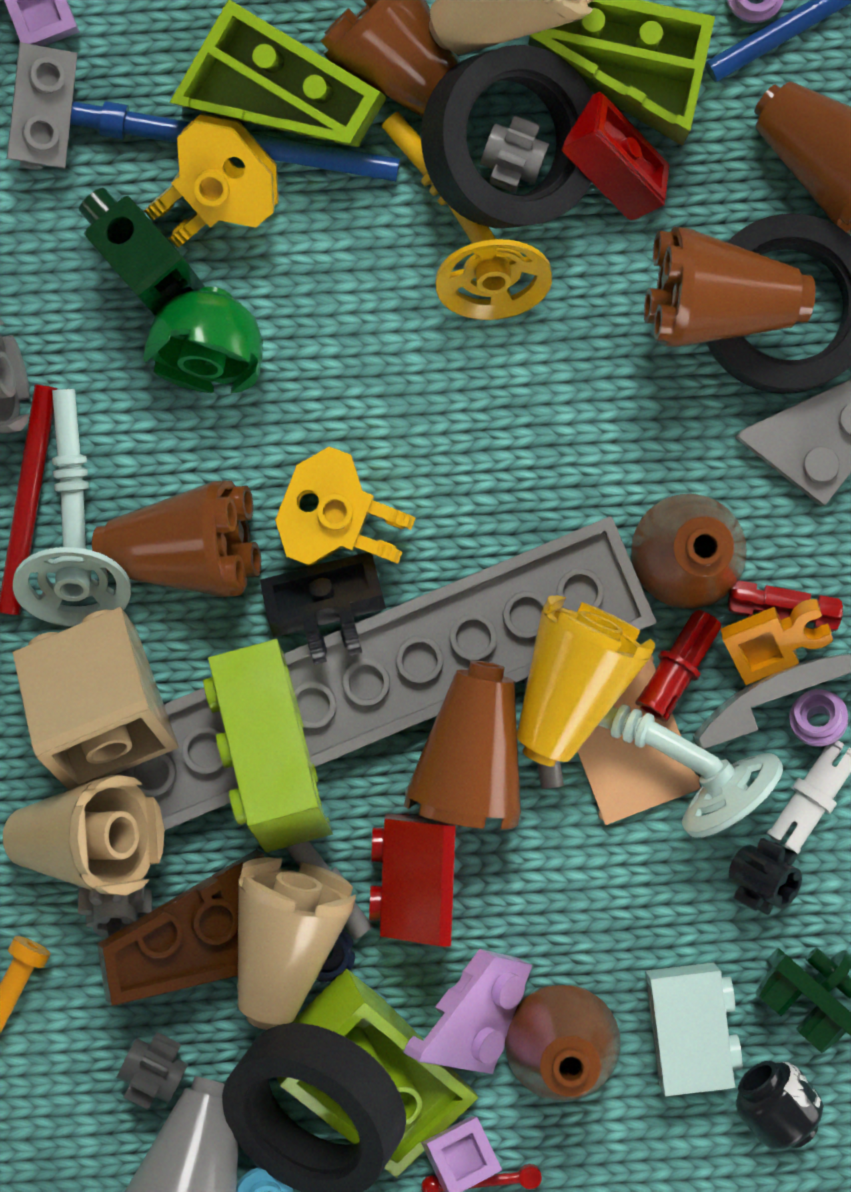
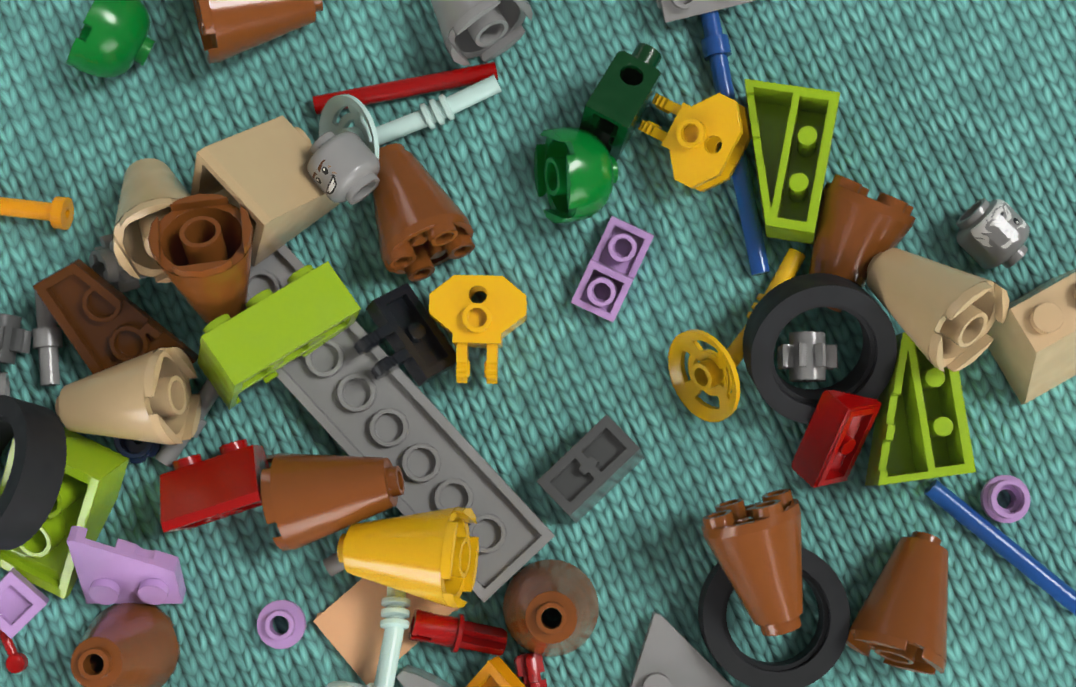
camera: 70 degrees right, 5 degrees down
(105, 600) = (343, 167): none -> light grey head
(152, 787) = (206, 253): none -> dark orange cone
(172, 1018) = (47, 340): none -> light grey bar
(330, 337) = (612, 268): none -> lavender slope
(550, 446) = (591, 468): none -> dark grey hinge
(596, 842) = (296, 620): none -> lavender plate

